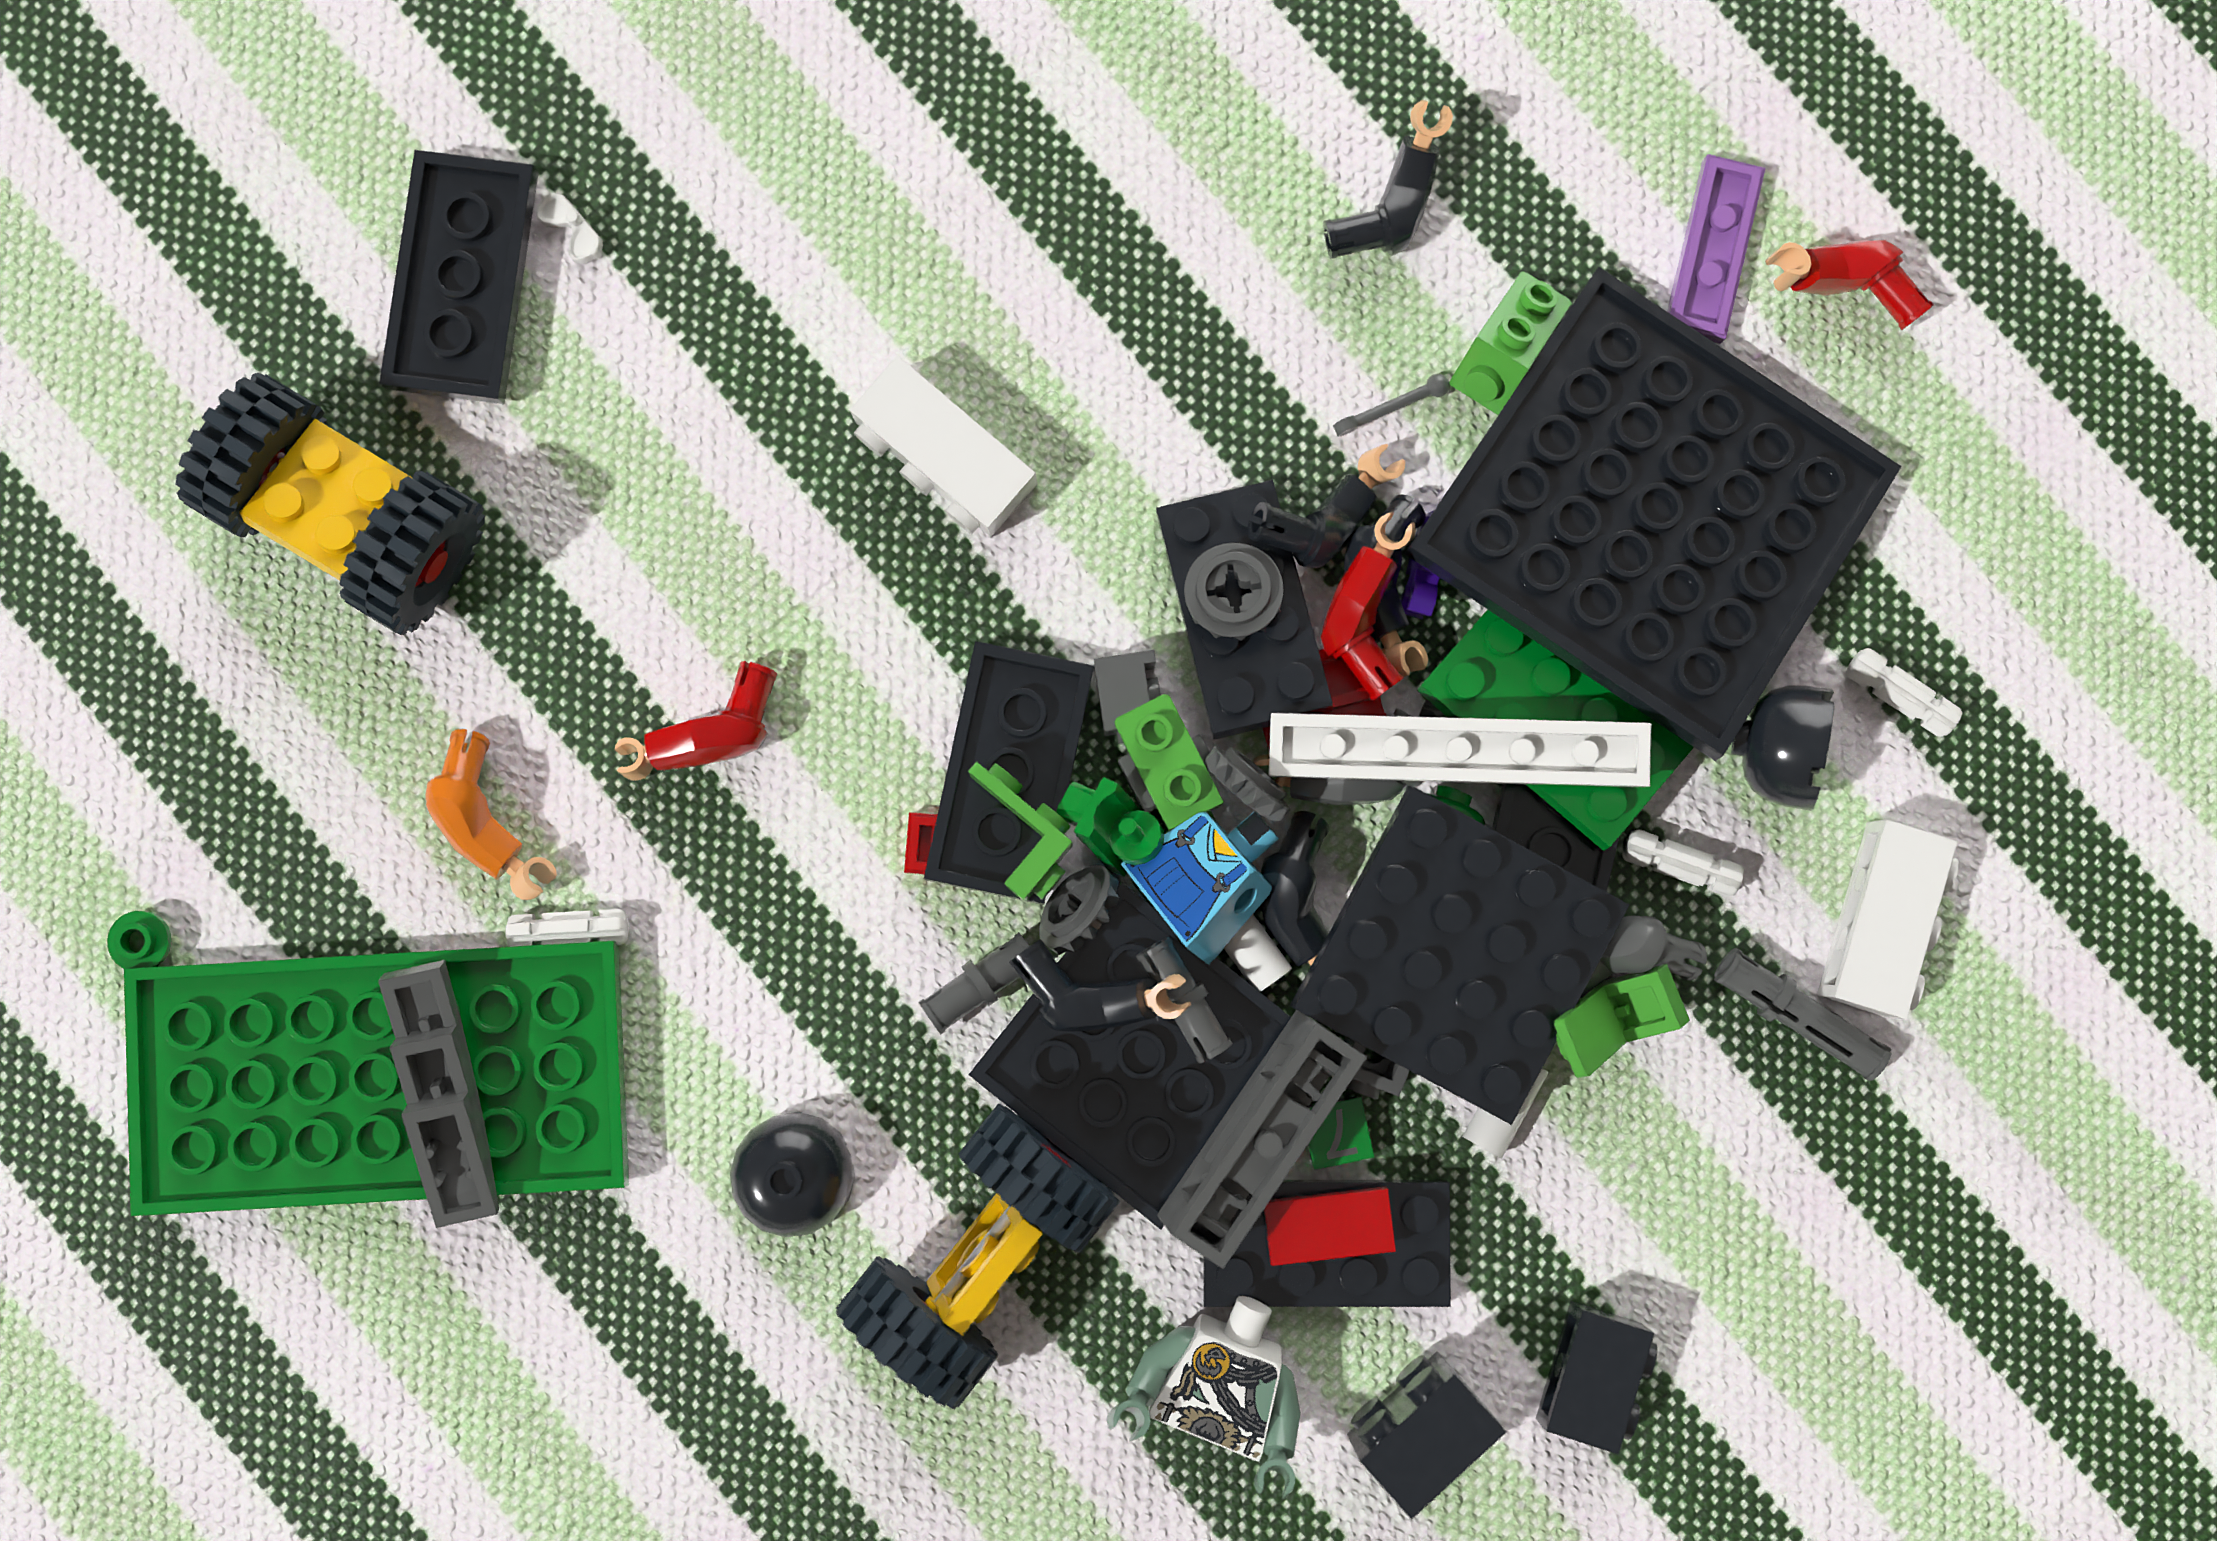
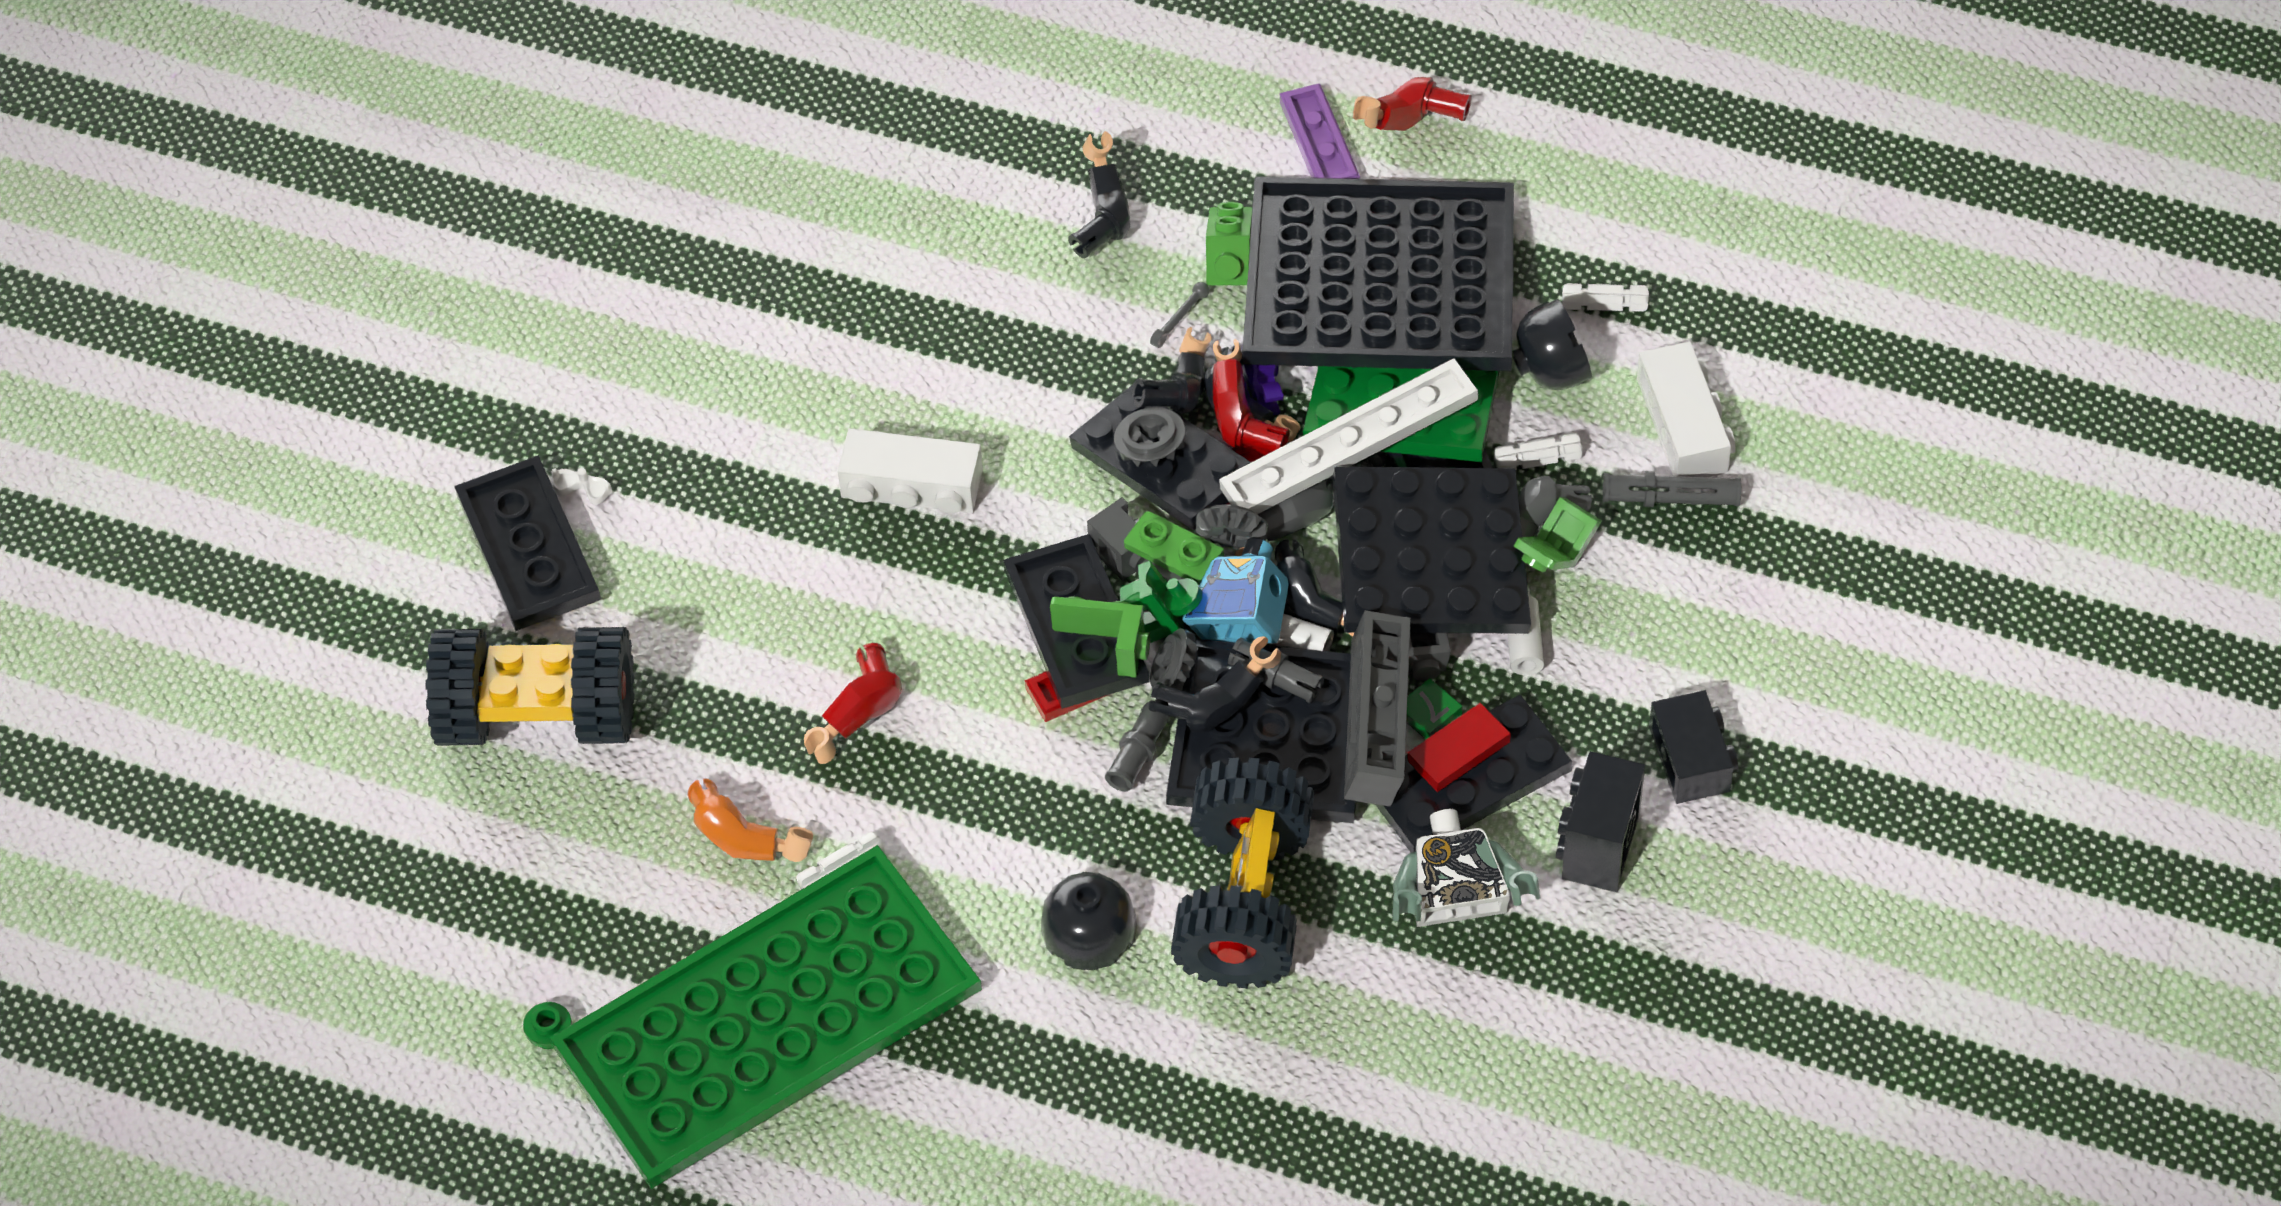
camera: 30 degrees left, 30 degrees down
(440, 1094) = (820, 981): dark grey slope -> none

